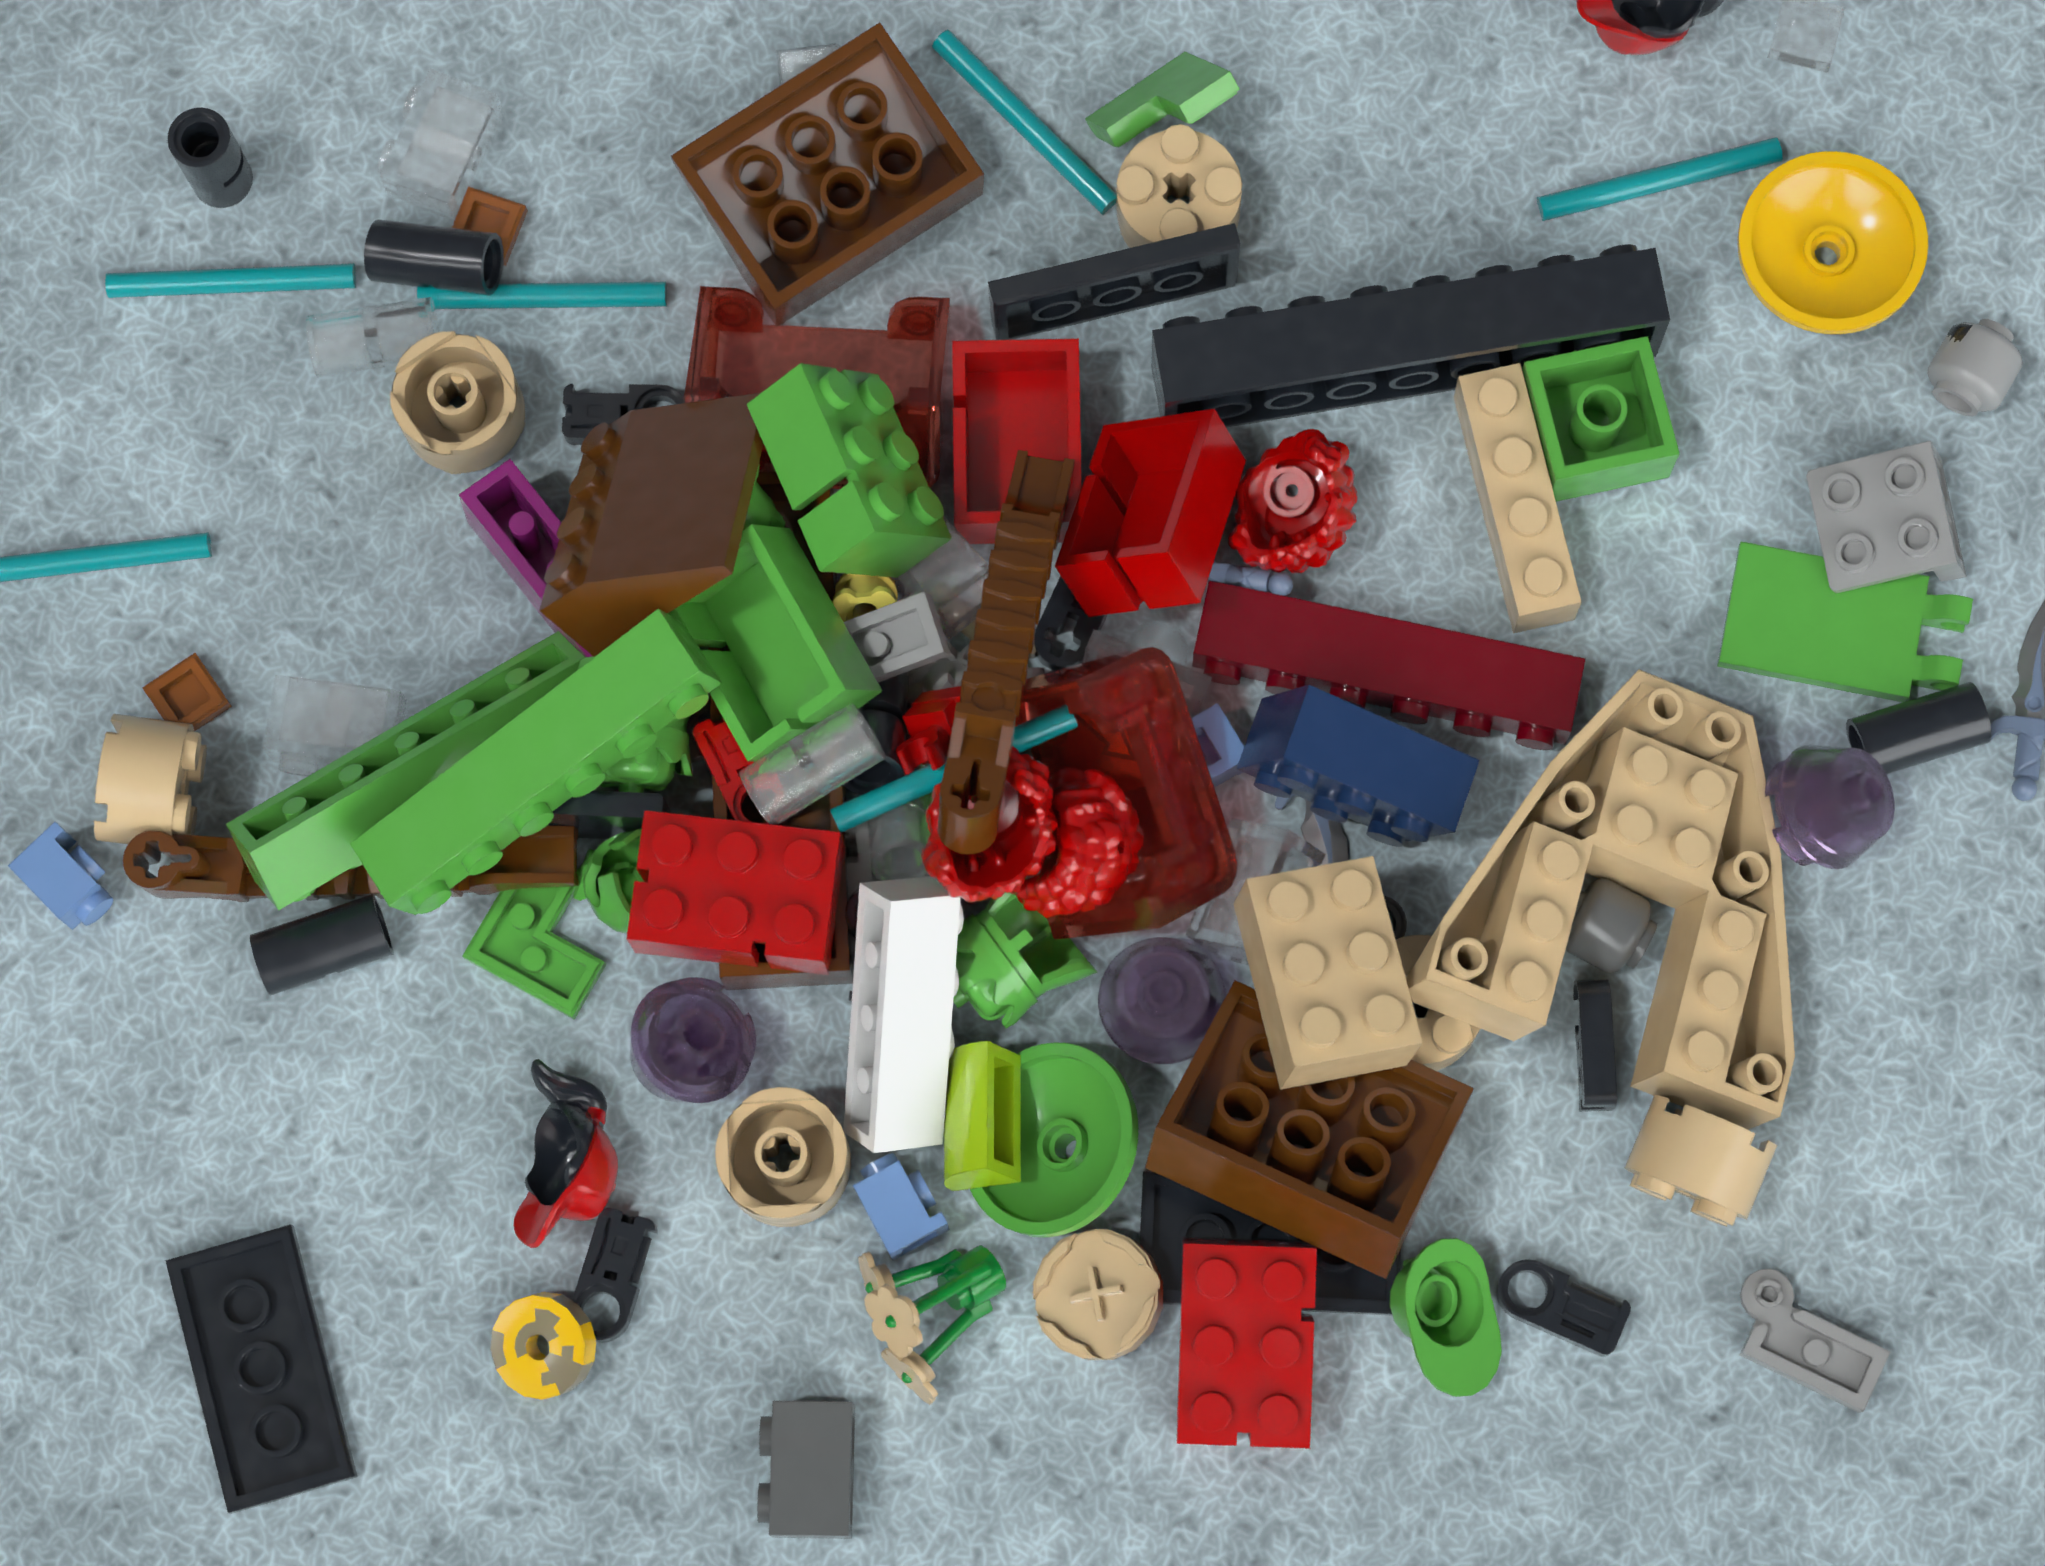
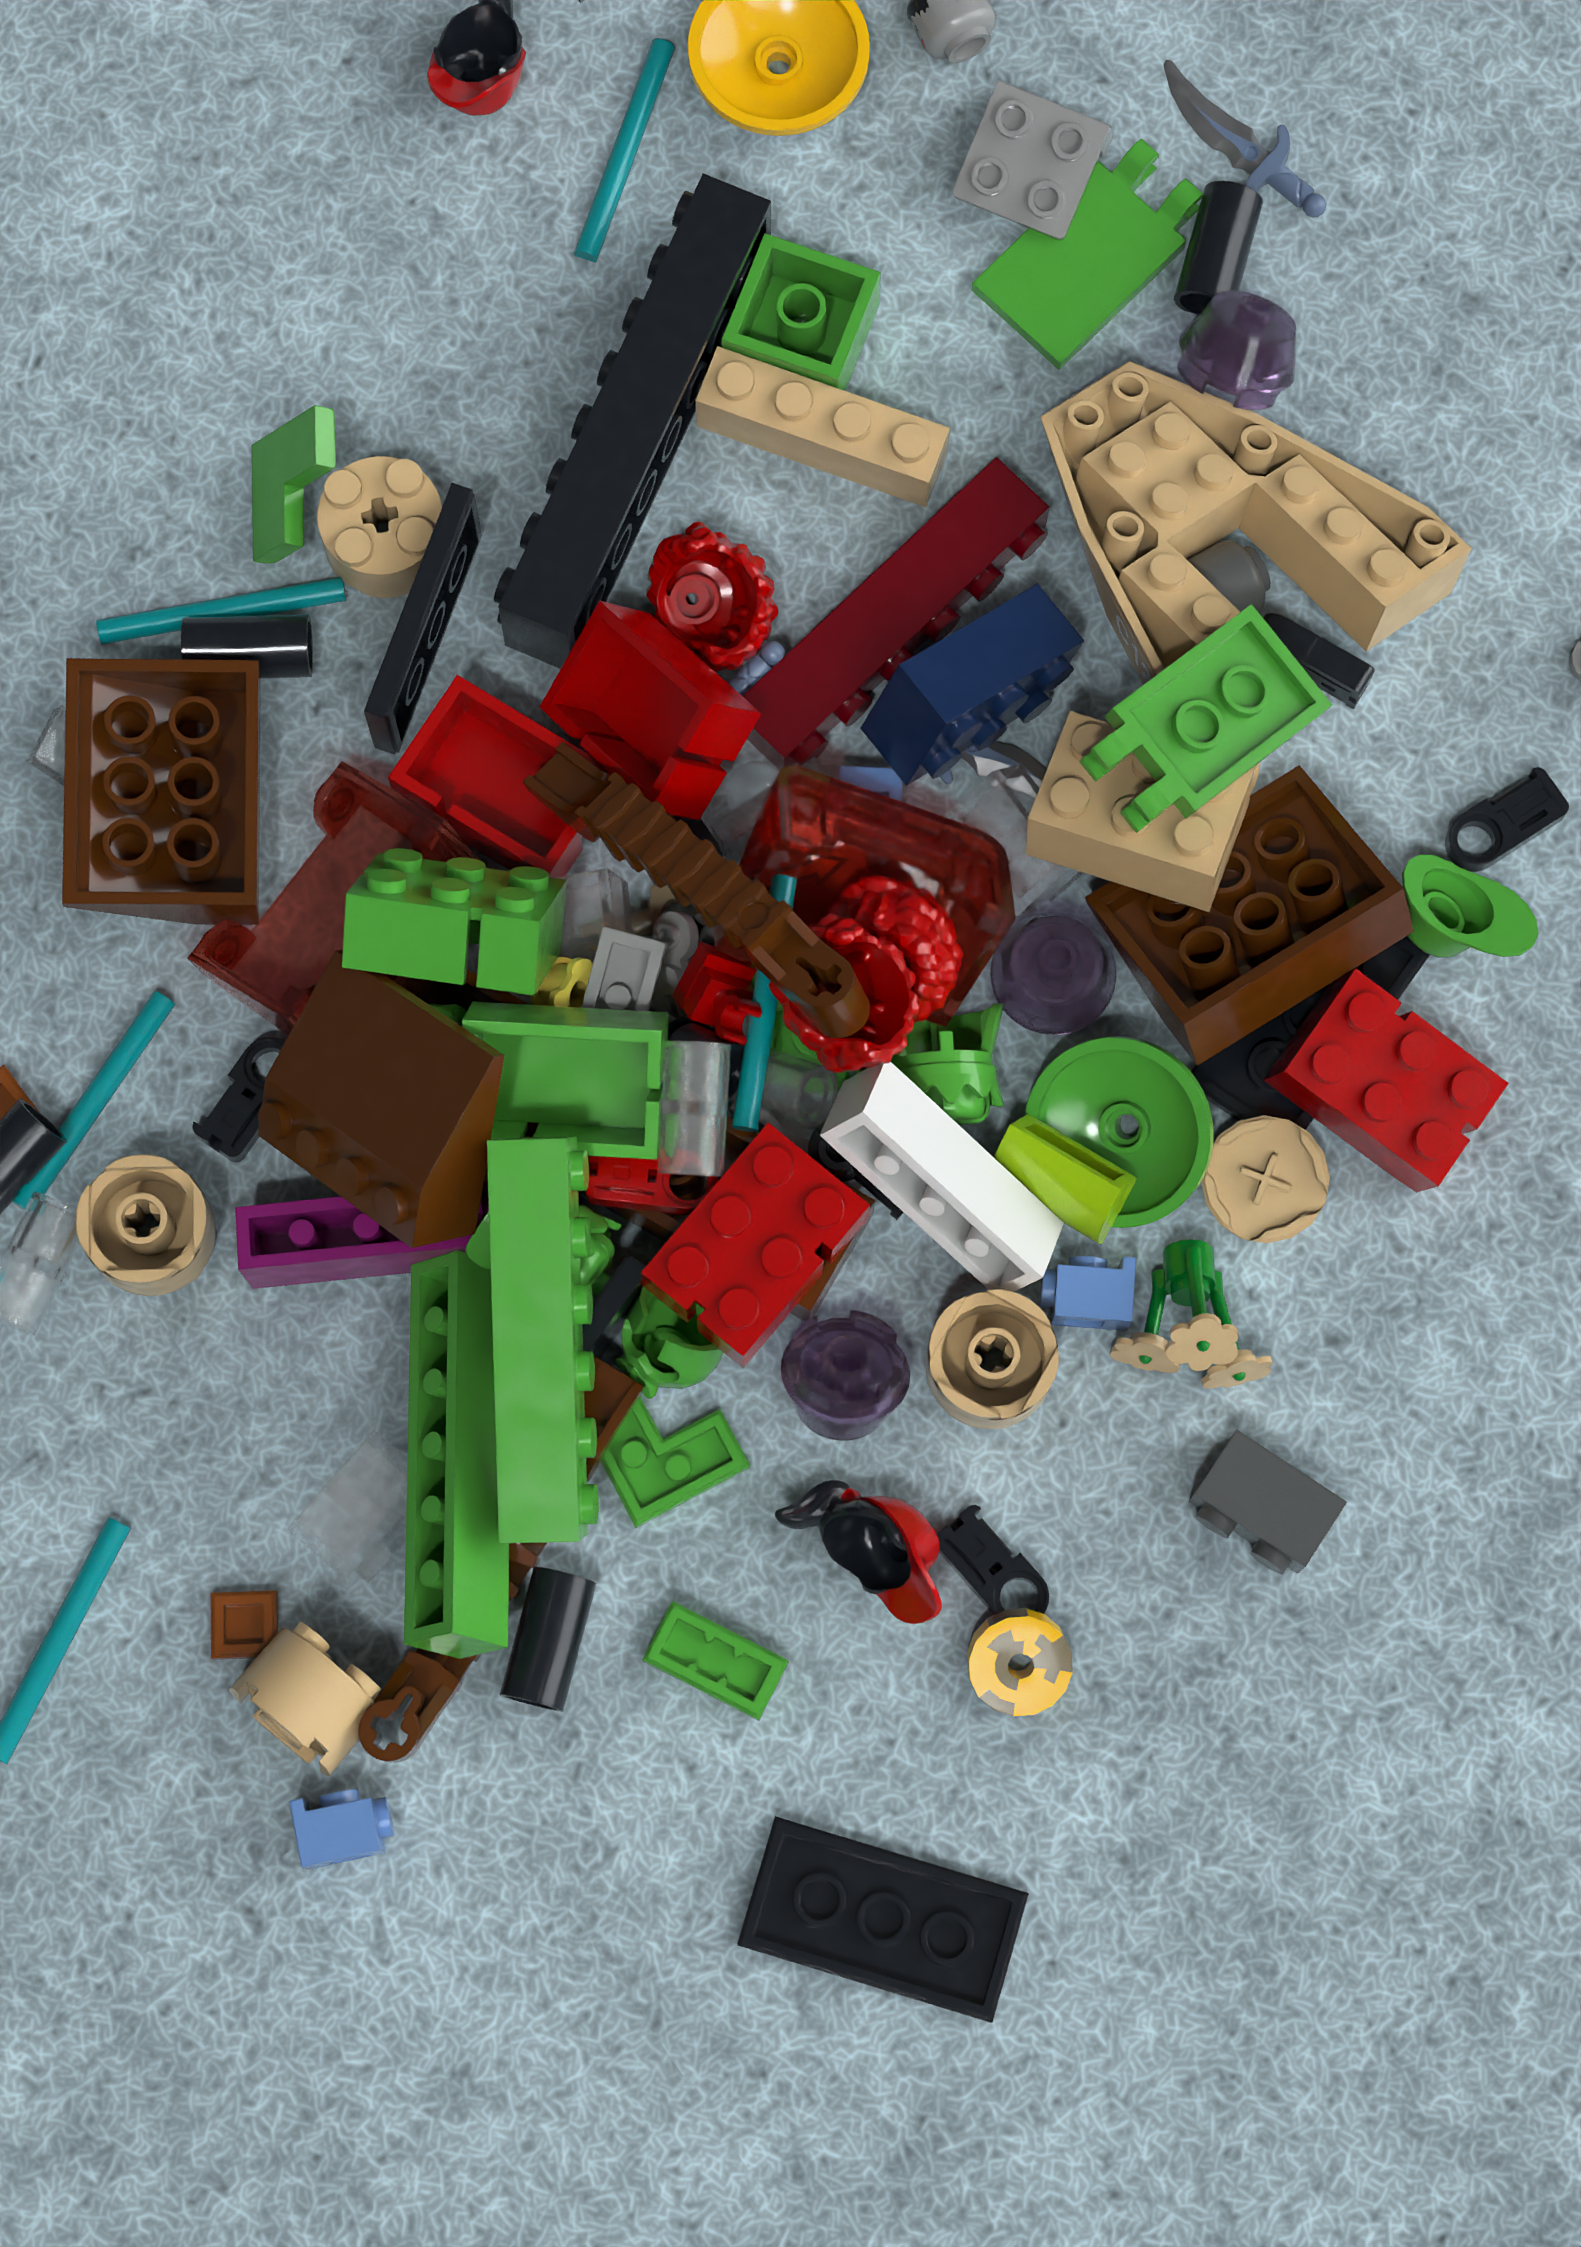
camera: 65 degrees left, 0 degrees up
(389, 1093) = (715, 1661): none -> bright green plate
(1011, 168) = (278, 642): none -> black pin
(1434, 973) = (1209, 718): none -> bright green tile
(1700, 1160) = (1461, 633): tan brick -> none

